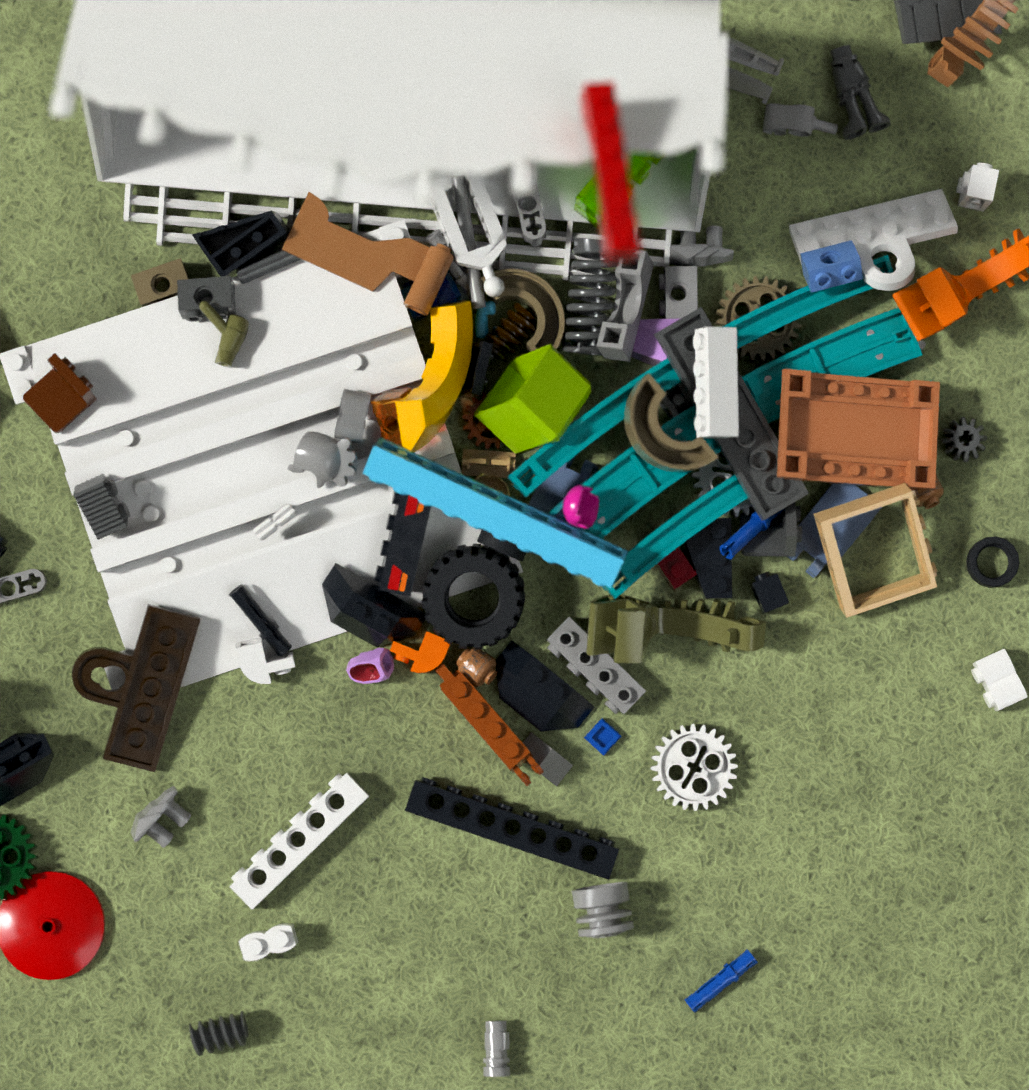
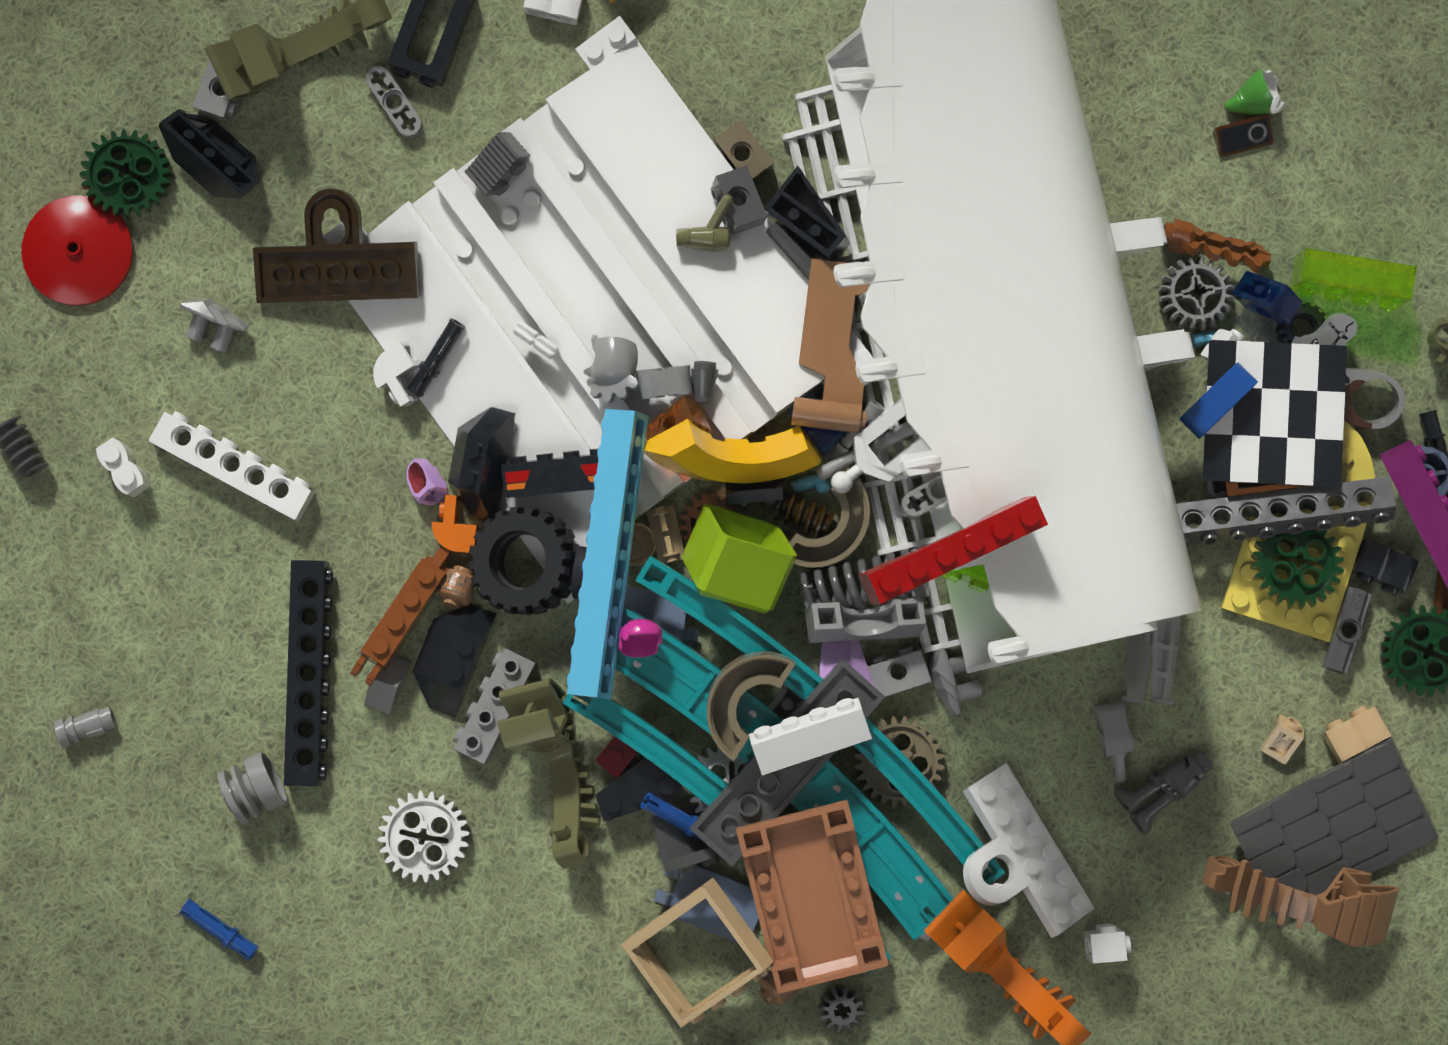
camera: 80 degrees right, 0 degrees up
(60, 395) = (594, 87): reddish brown bracket -> none
(361, 379) = (704, 379): none -> dark grey cone
(602, 736) = (427, 735): blue tile -> none
(769, 592) = (623, 858): black brick -> none
(831, 266) = (972, 818): medium blue brick -> none

